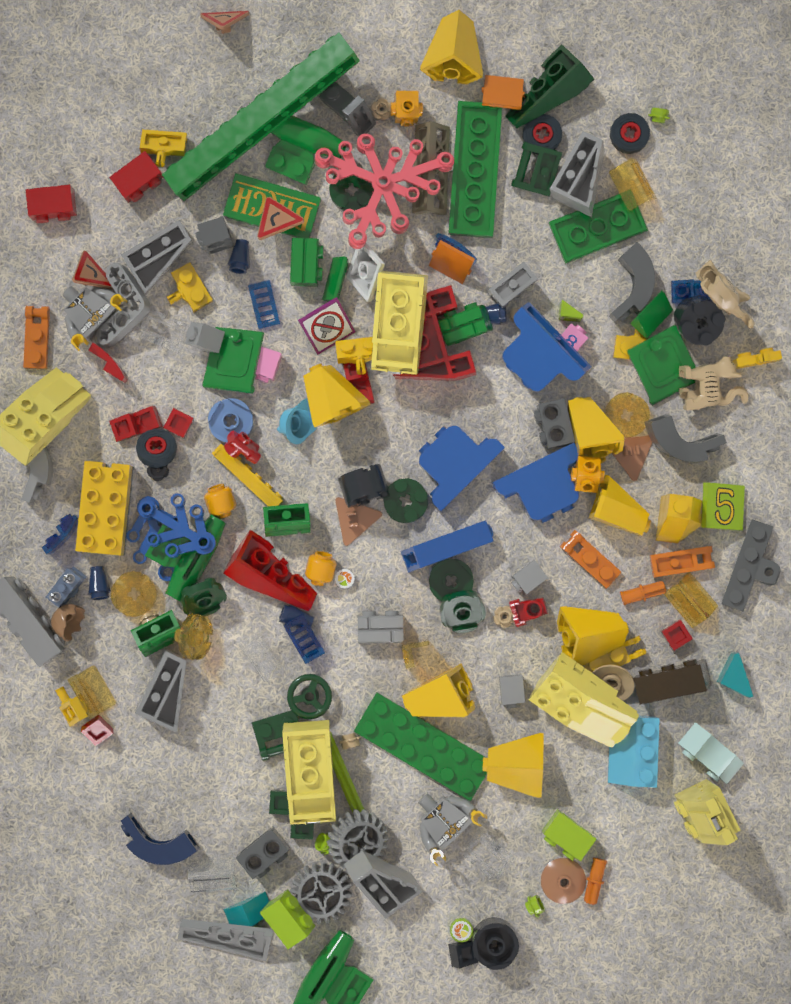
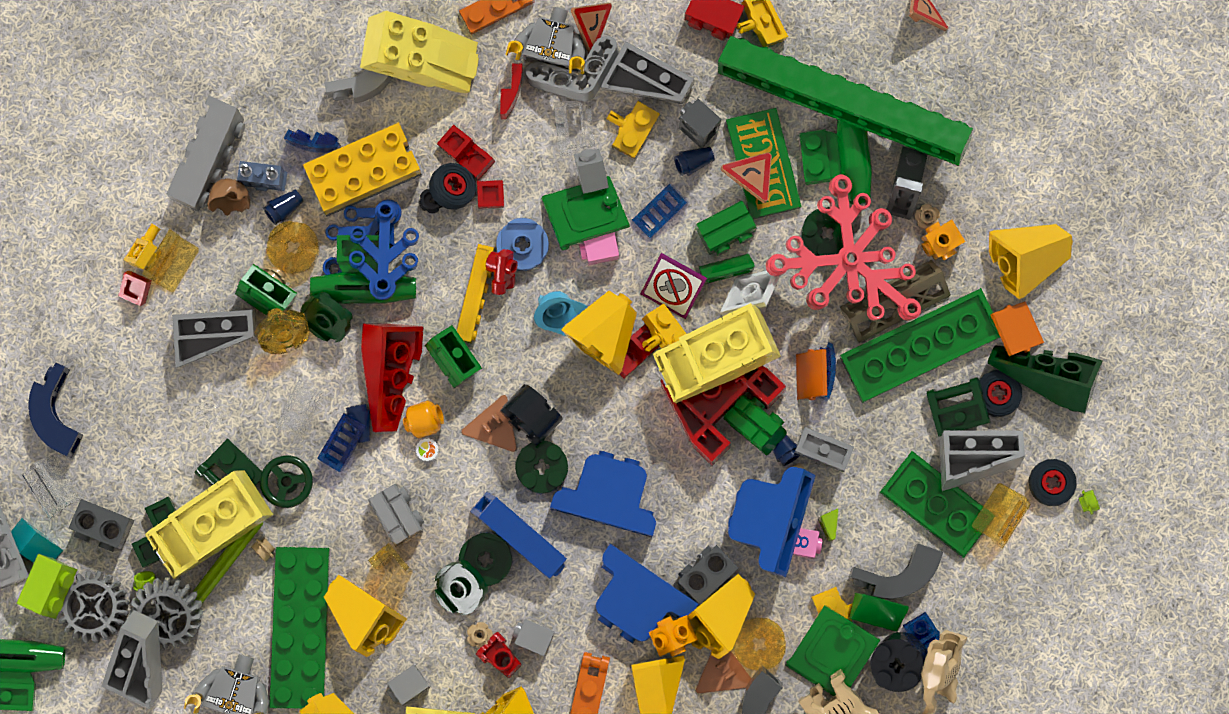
camera: 60 degrees right, 5 degrees down
(220, 500) = (435, 279): light orange head -> none

